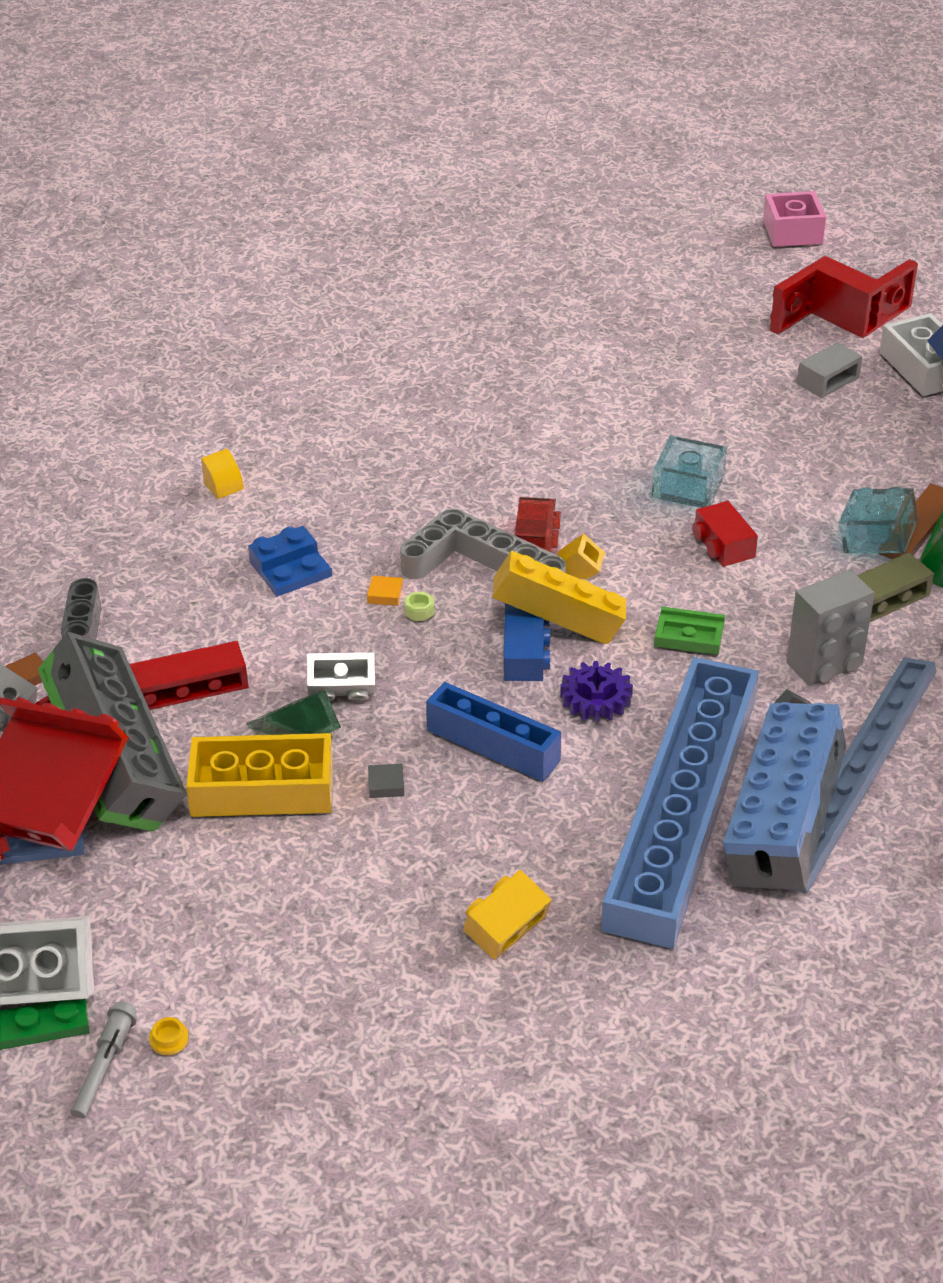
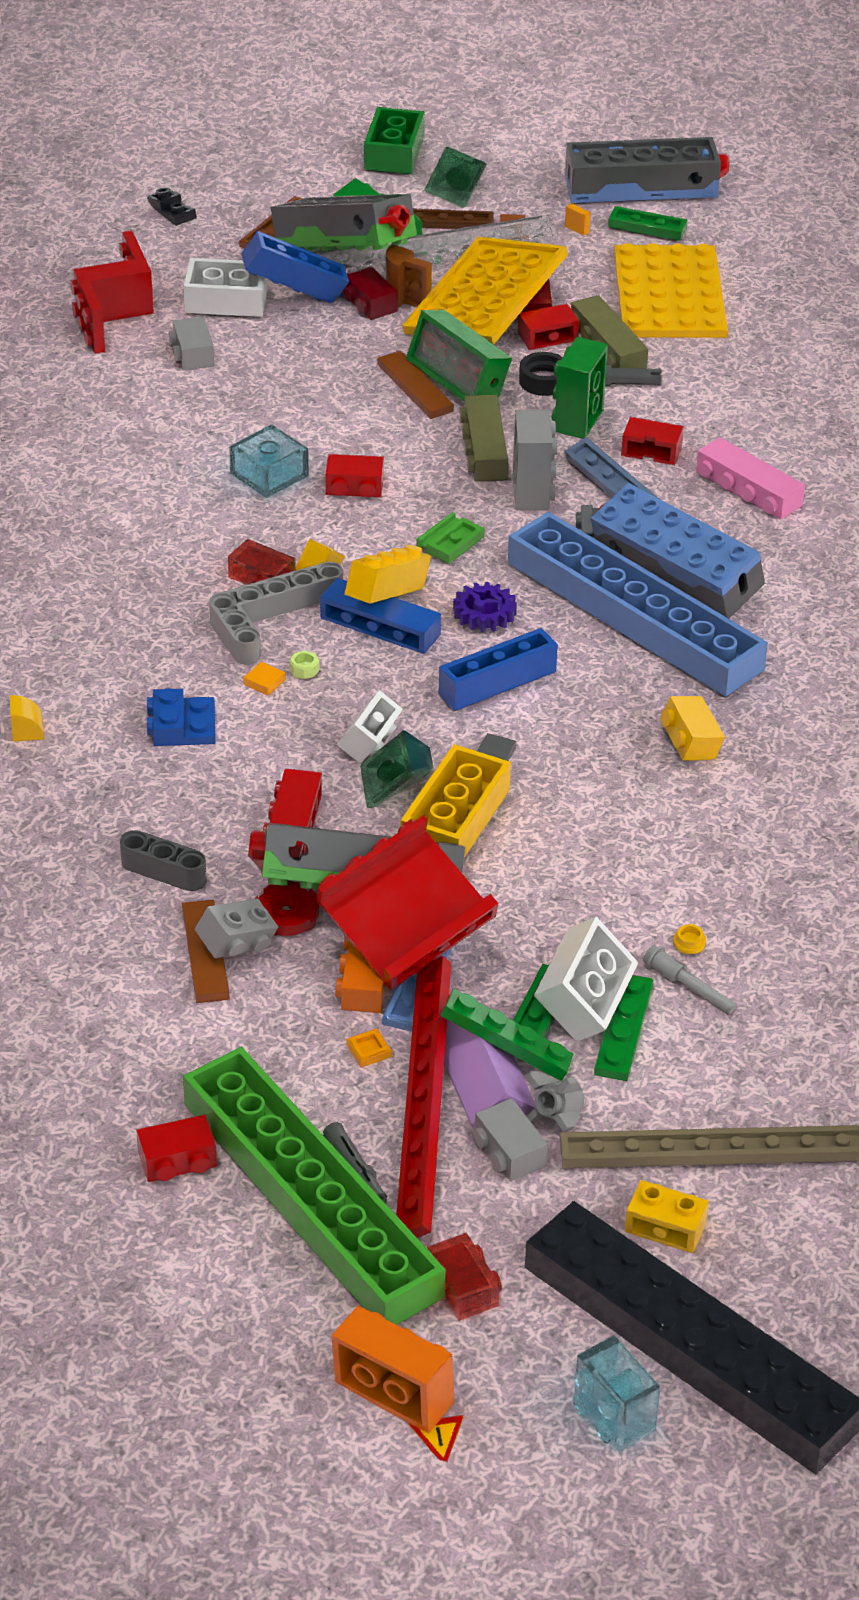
camera: 65 degrees left, 0 degrees up
(878, 520) = (414, 394): clear light blue brick -> none

